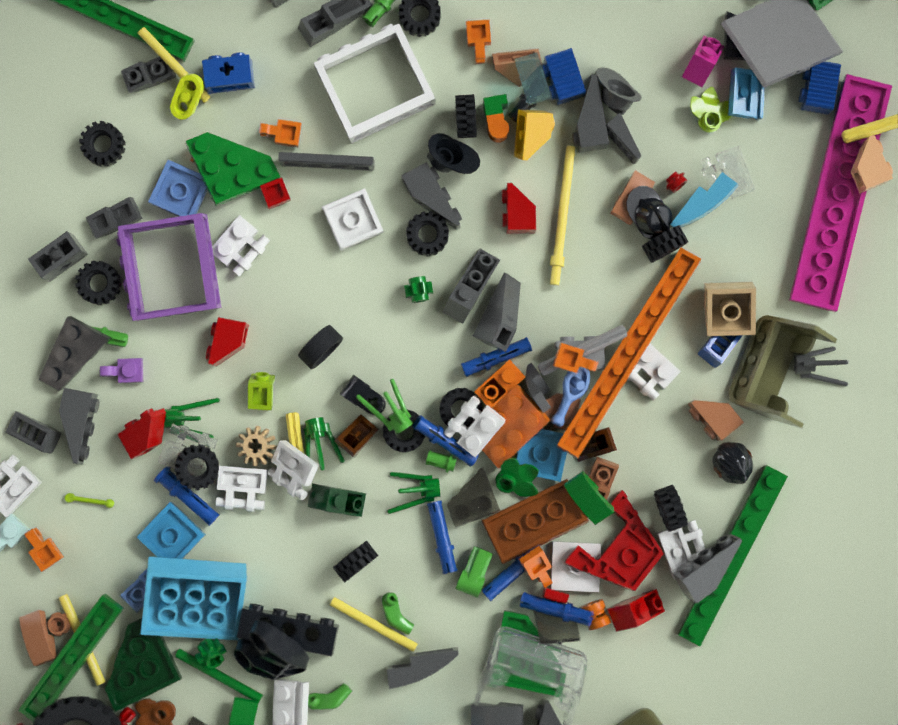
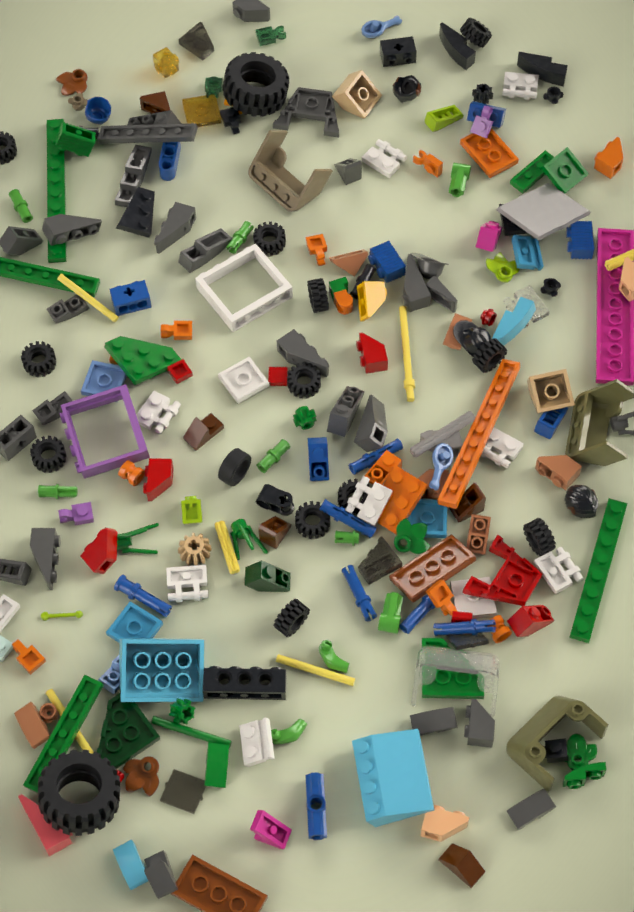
camera: 10 degrees left, 25 degrees down
(71, 351) = (33, 504): black wing -> none
(172, 449) = (136, 566): clear plate -> none
(187, 95) = (99, 315): neon yellow plate -> none
(196, 481) = (154, 557): black tyre -> none
(197, 330) = (131, 473): none -> orange wheel
(270, 653) = (241, 694): black connector -> none
(292, 282) = (202, 431): none -> reddish brown slope
(294, 463) = (230, 552): white plate -> none
(326, 161) = (216, 343): dark grey tile -> none
(371, 334) = (273, 456): none -> bright green pin
(396, 220) = (278, 376): none -> red tile
(399, 419) = (307, 504): bright green plant -> none
(421, 666) = (361, 692): dark grey slope -> none
(425, 348) = (318, 459): none -> blue slope
(429, 488) = (340, 558): green plant -> none
(450, 154) = (310, 324): black piece -> none
(532, 78) = (363, 263): clear light blue tile -> none
(537, 387) = (413, 466): dark grey slope -> none
(571, 358) = (434, 436): orange plate -> none
(588, 498) = (472, 539): green slope -> none
(705, 572) = (579, 578): dark grey slope -> none
(762, 144) = (554, 284): none -> black plate

